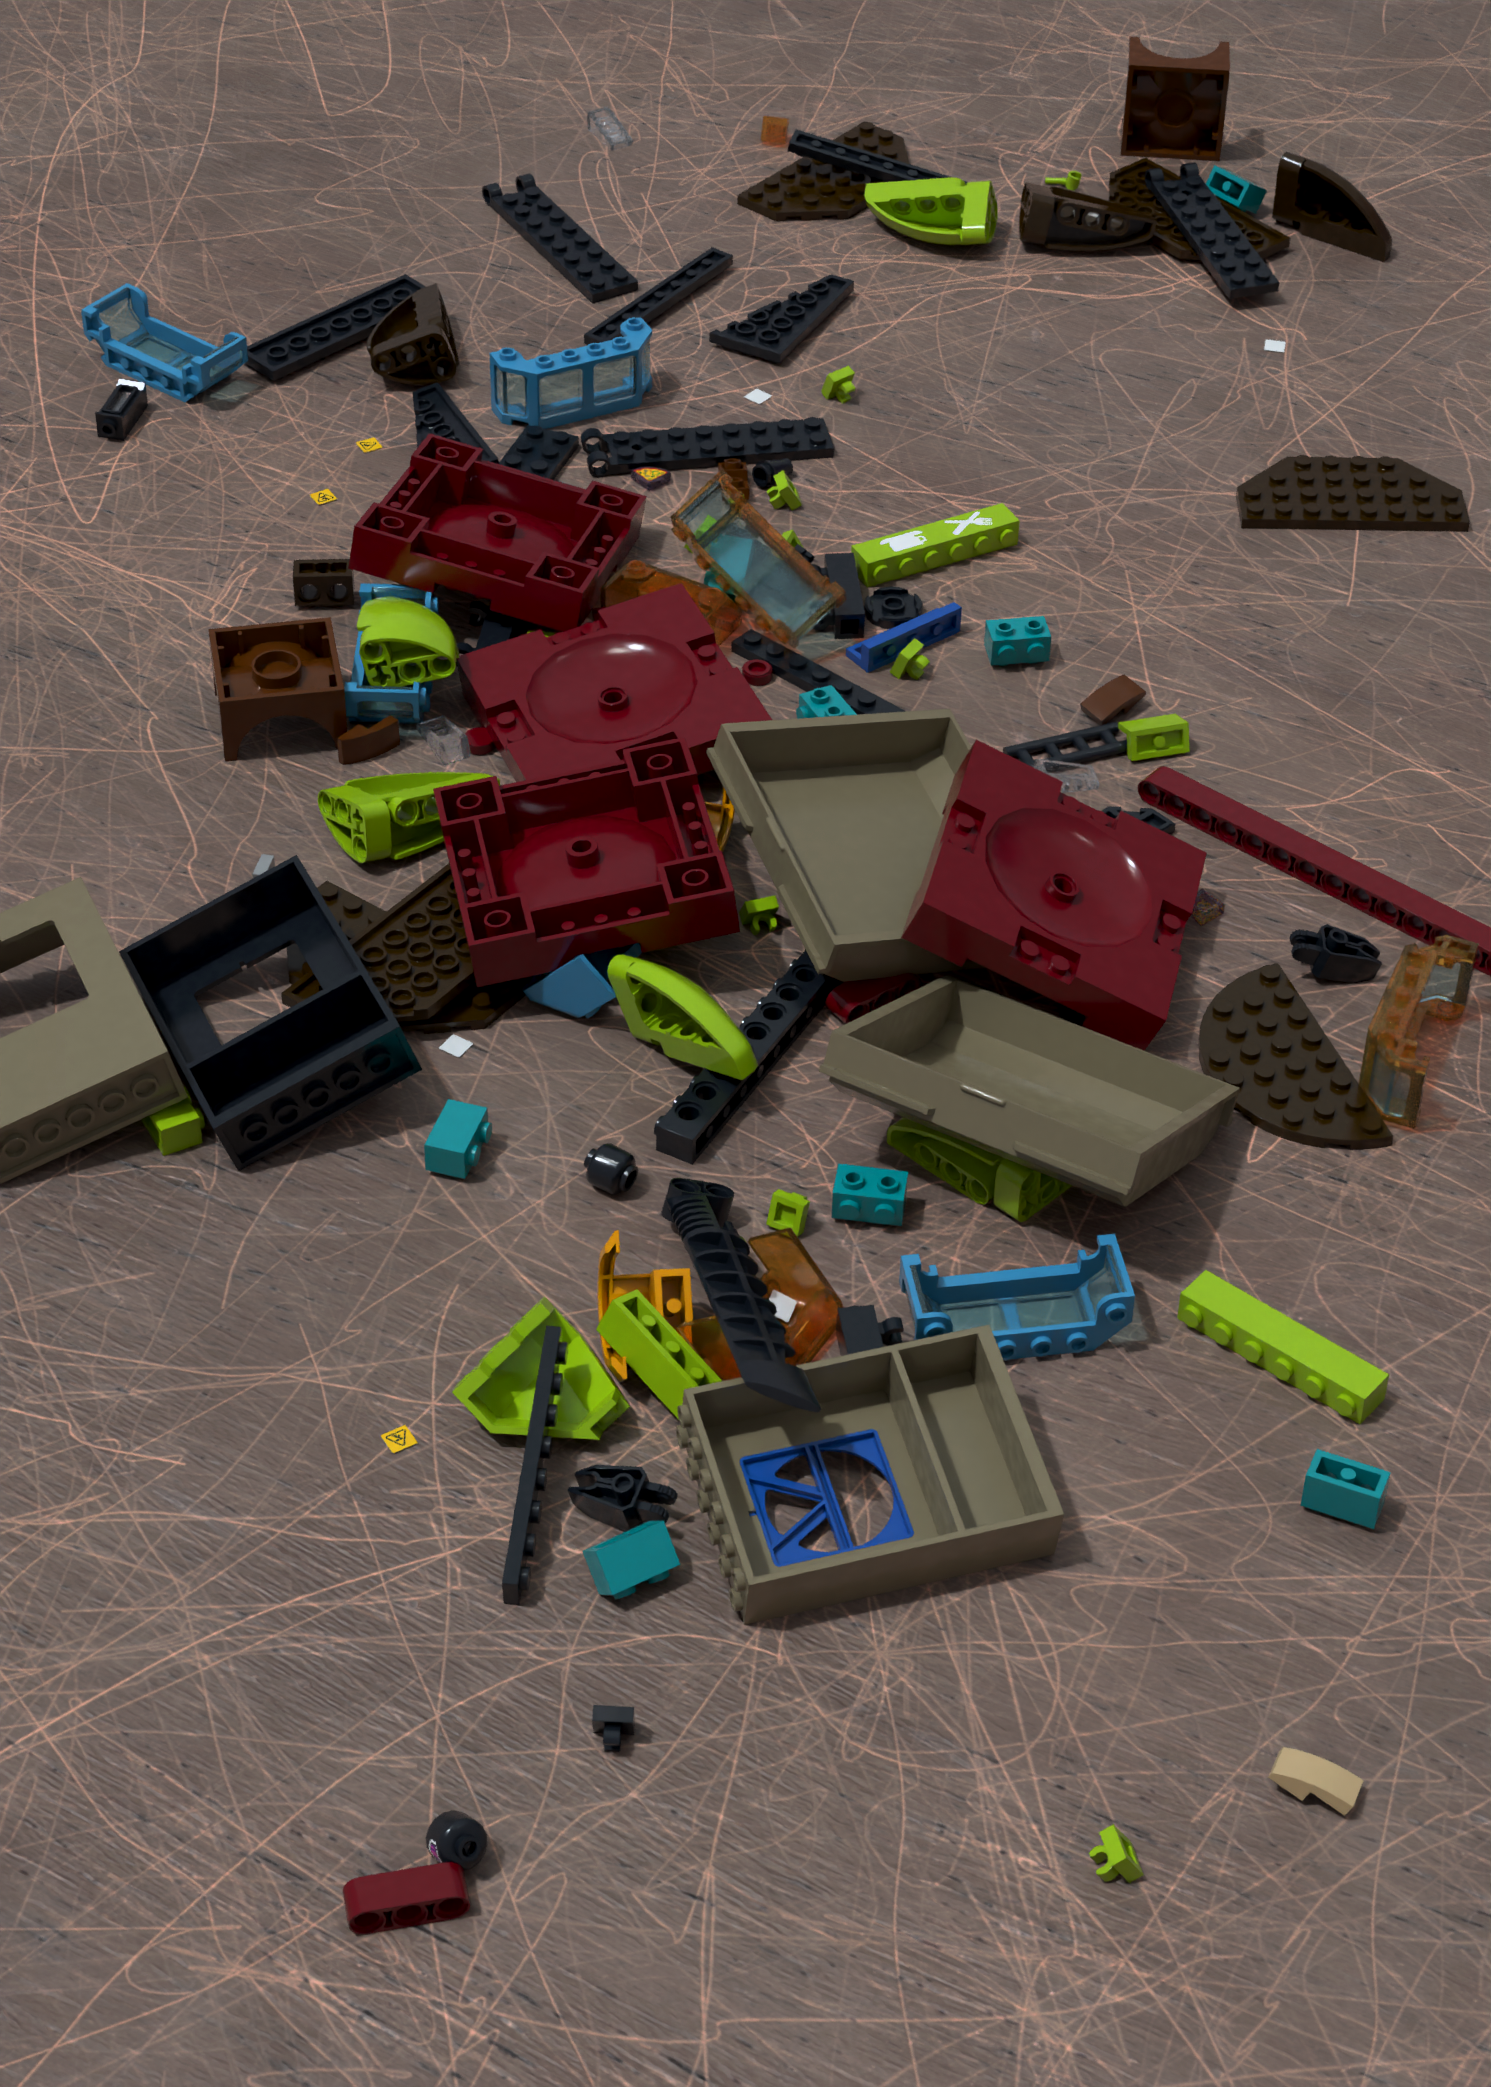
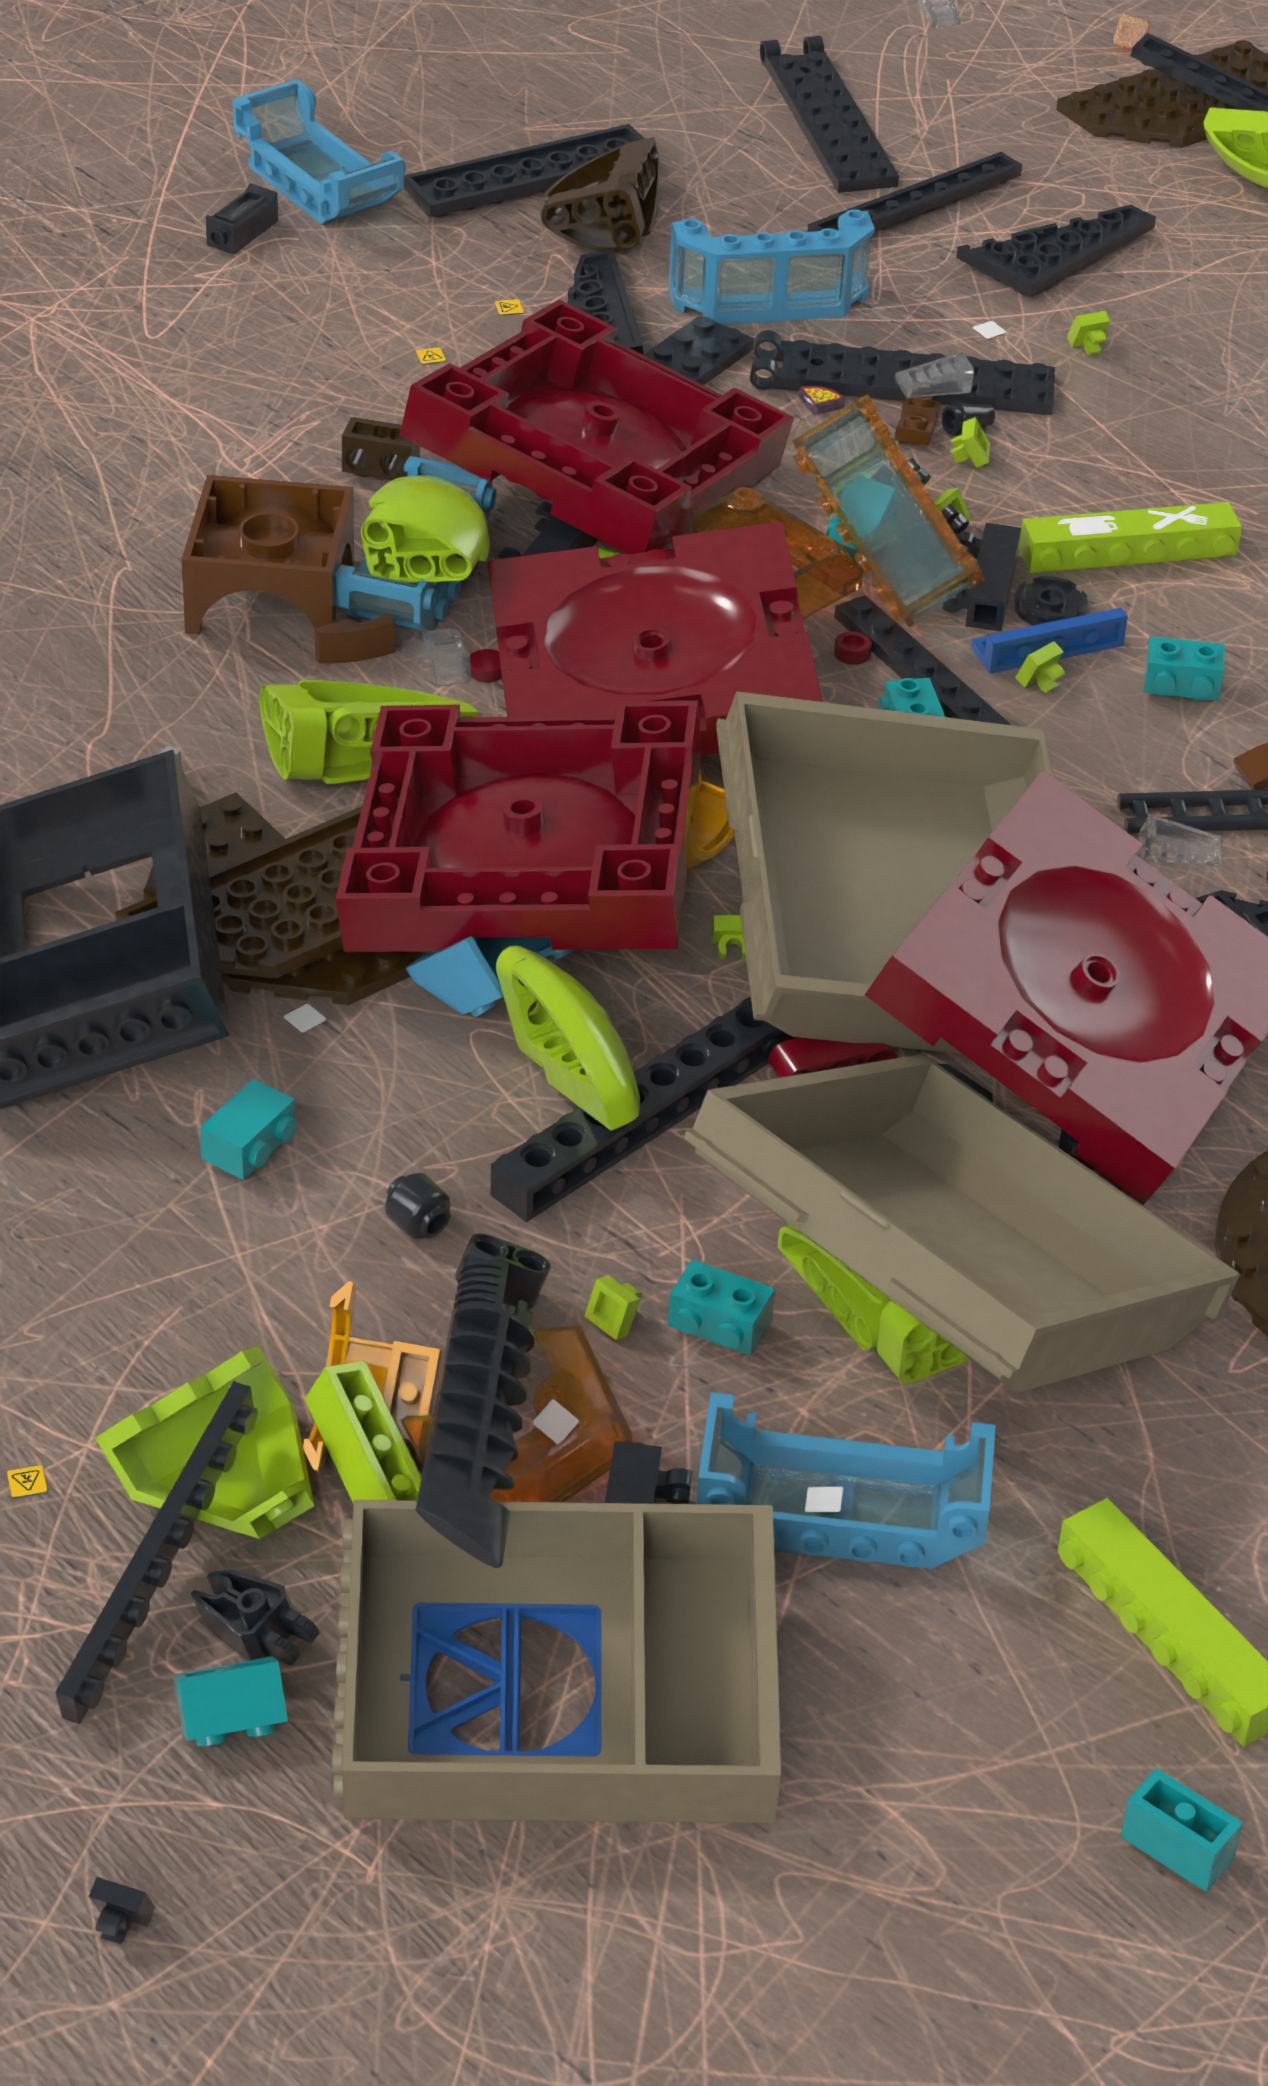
camera: 15 degrees right, 0 degrees up
(740, 443) = (938, 377): none -> clear slope
(1000, 1317) = (824, 1499): none -> white sticker

